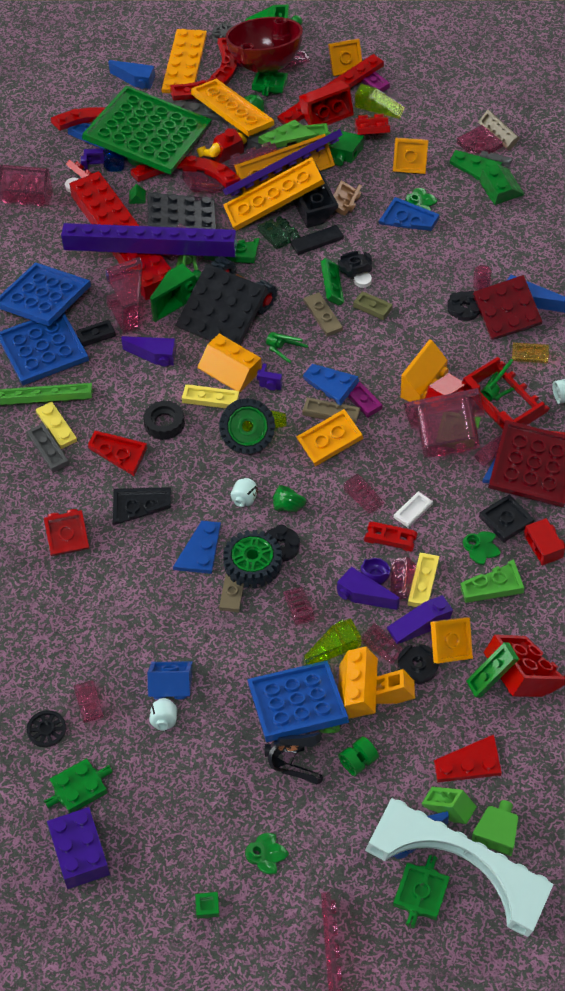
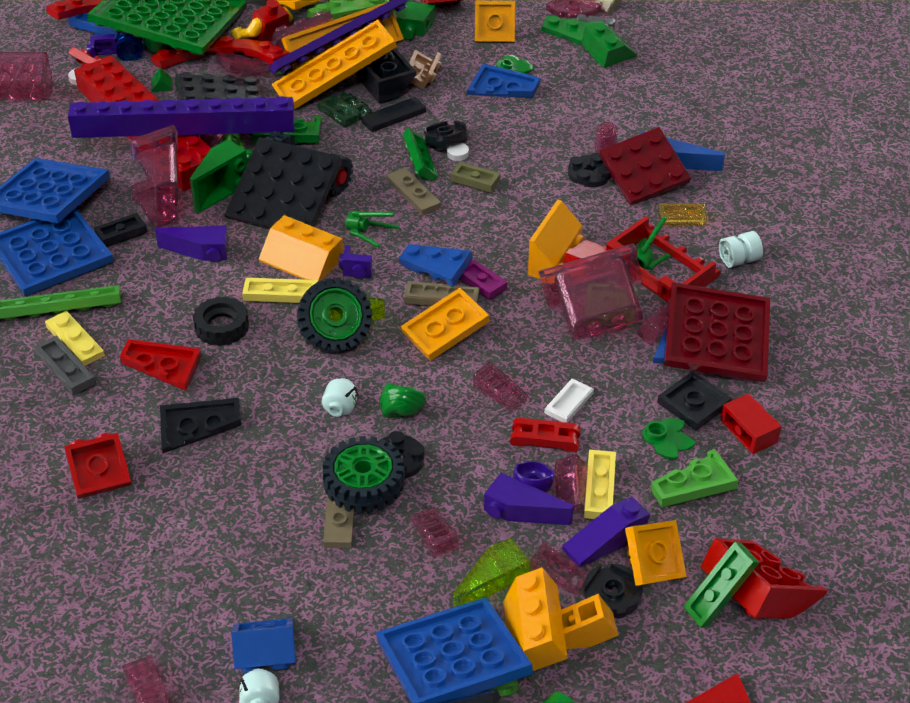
camera: 10 degrees left, 10 degrees down
(200, 550) = (288, 472): blue wing -> none

